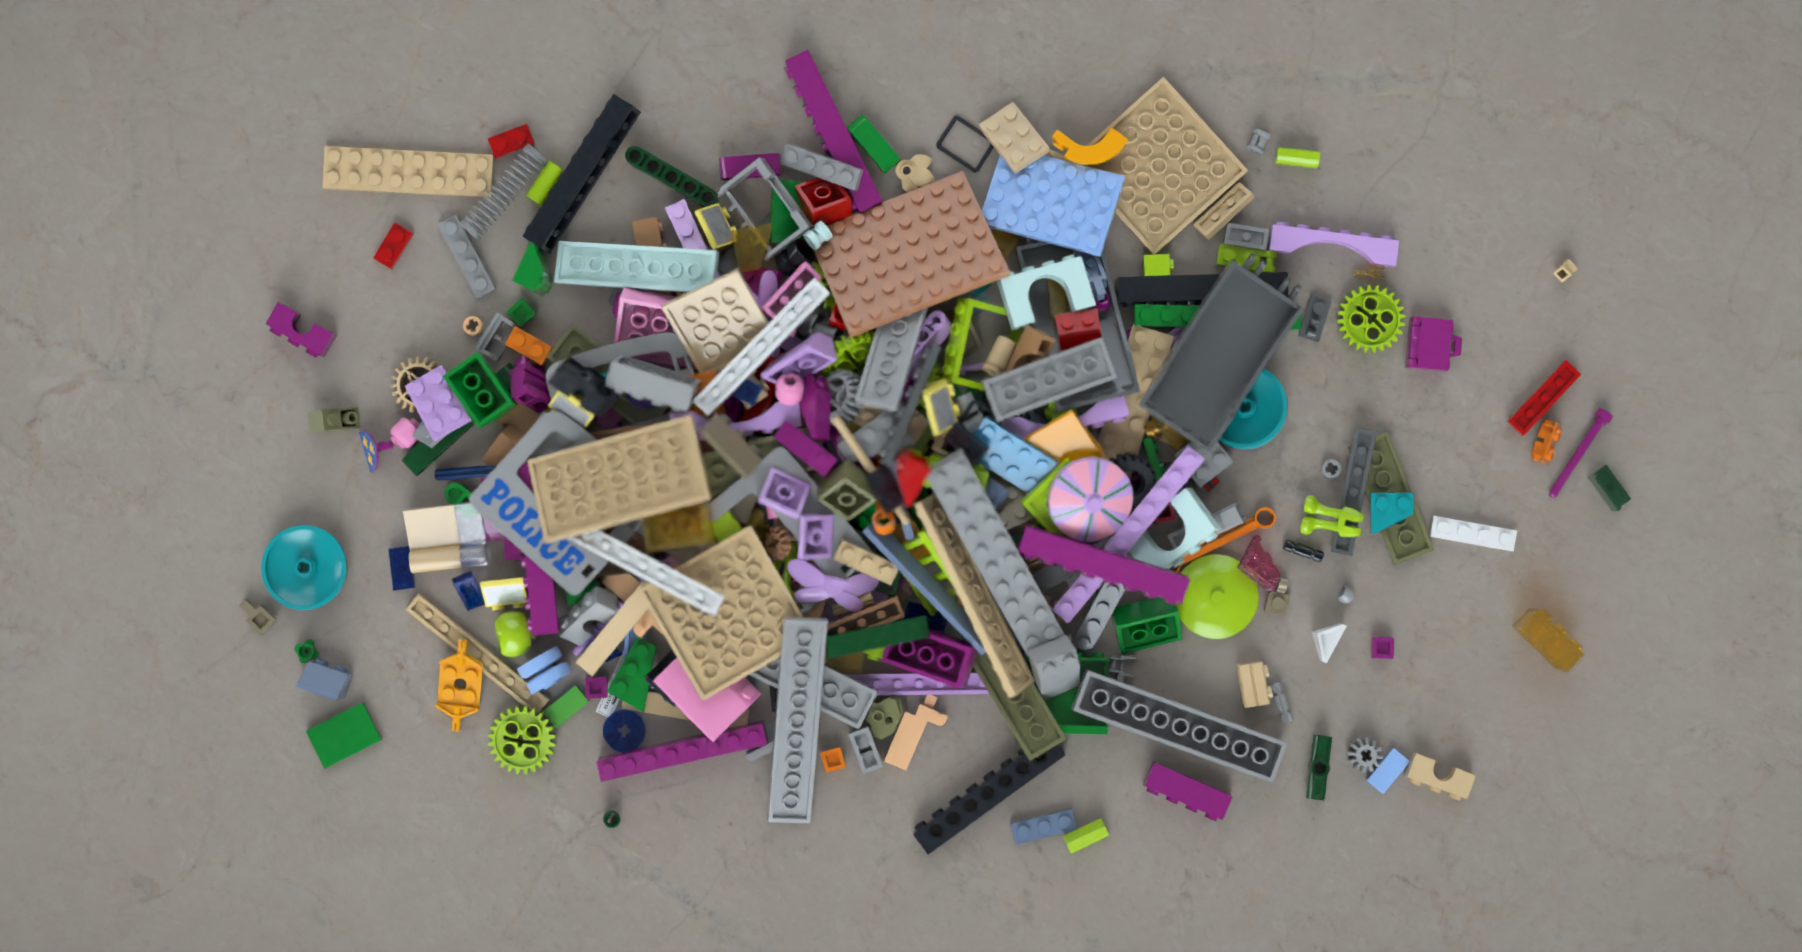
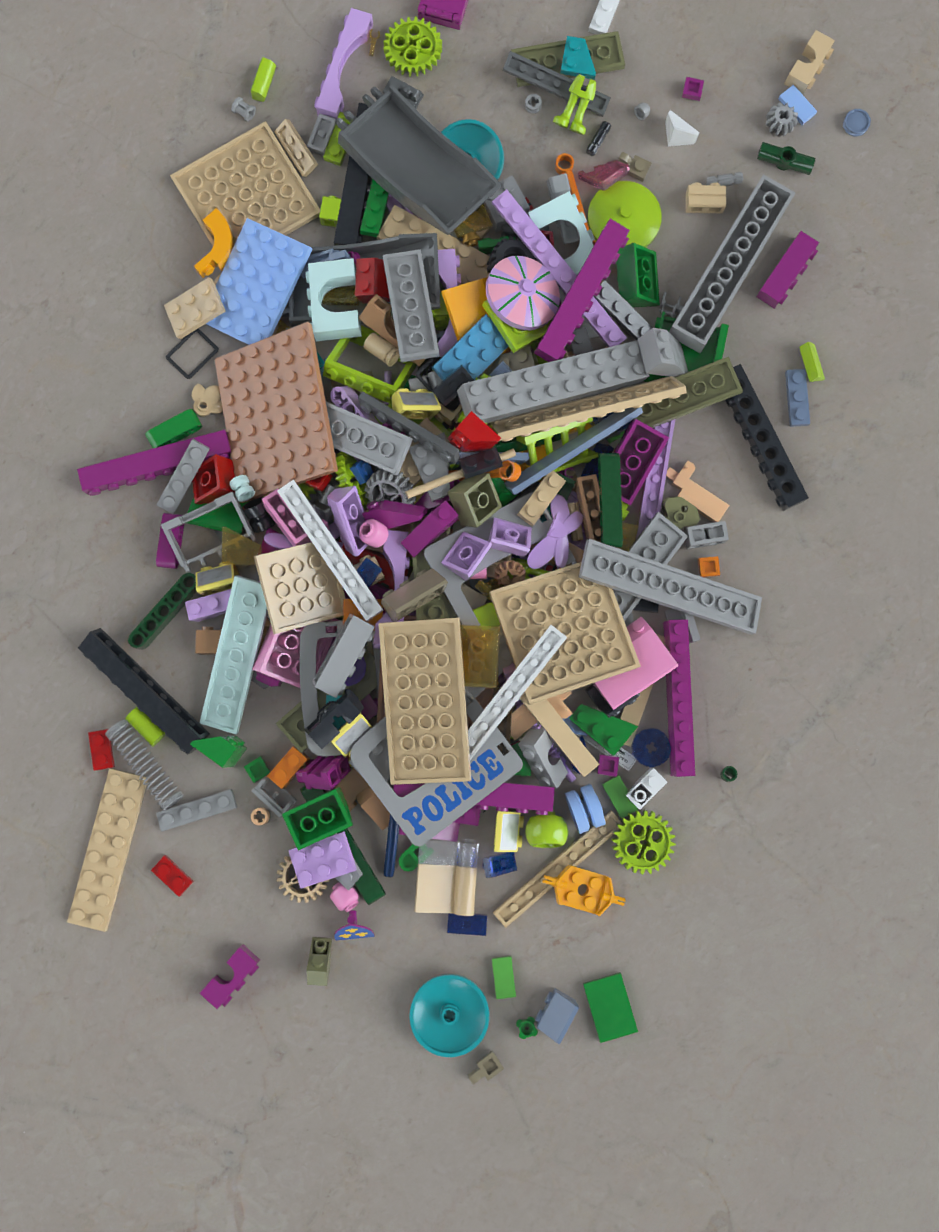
camera: 80 degrees left, 5 degrees down
(353, 617) = (503, 977): none -> bright green tile
(579, 731) = (645, 788): none -> white slope
(856, 362) = (362, 471): none -> blue plate
(1380, 841) = (856, 122): none -> sand blue piece

